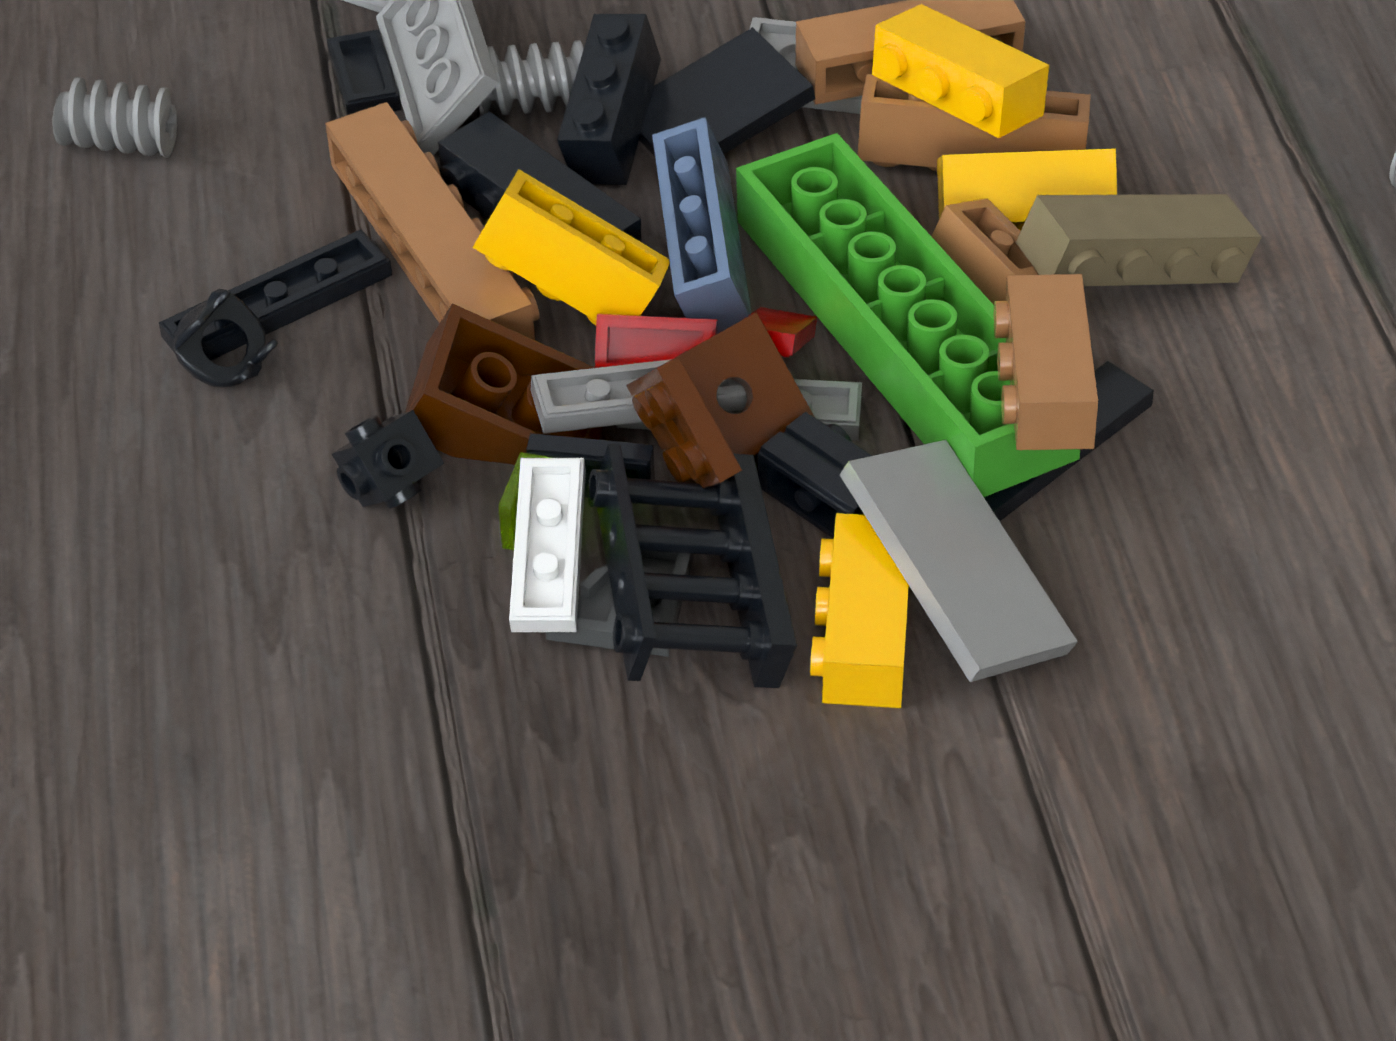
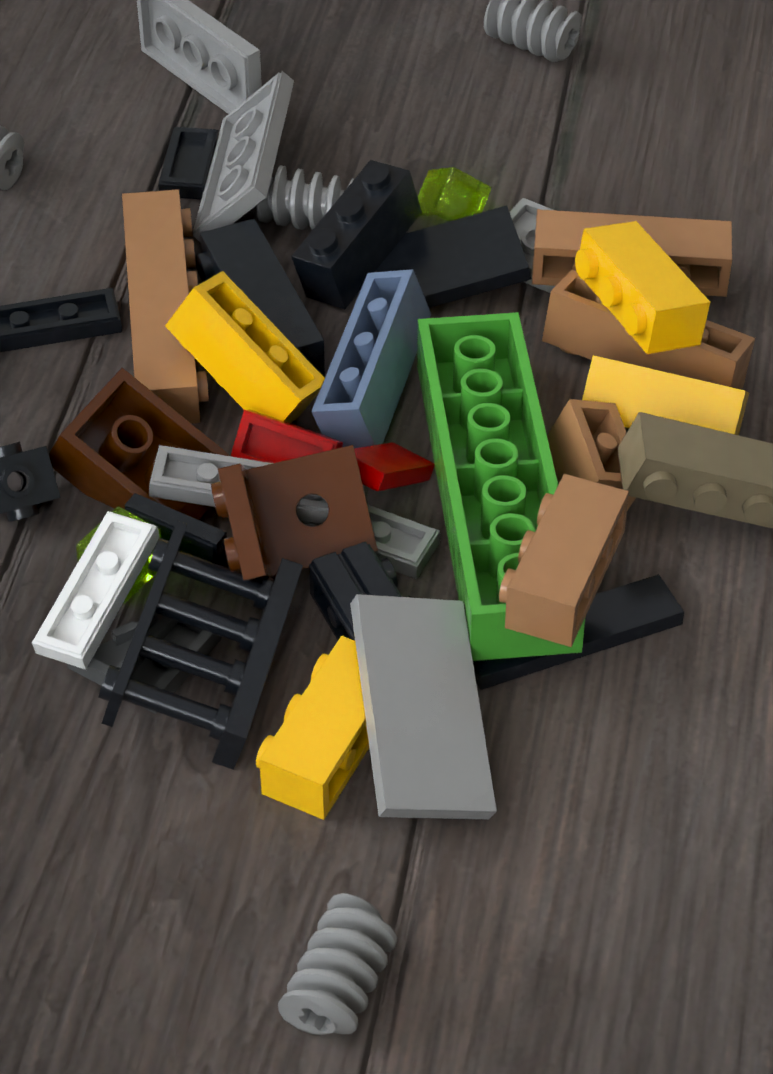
camera: 20 degrees right, 0 degrees up
(685, 30) = (452, 194): none -> clear neon green panel
(1014, 840) = (338, 968): none -> light grey piece

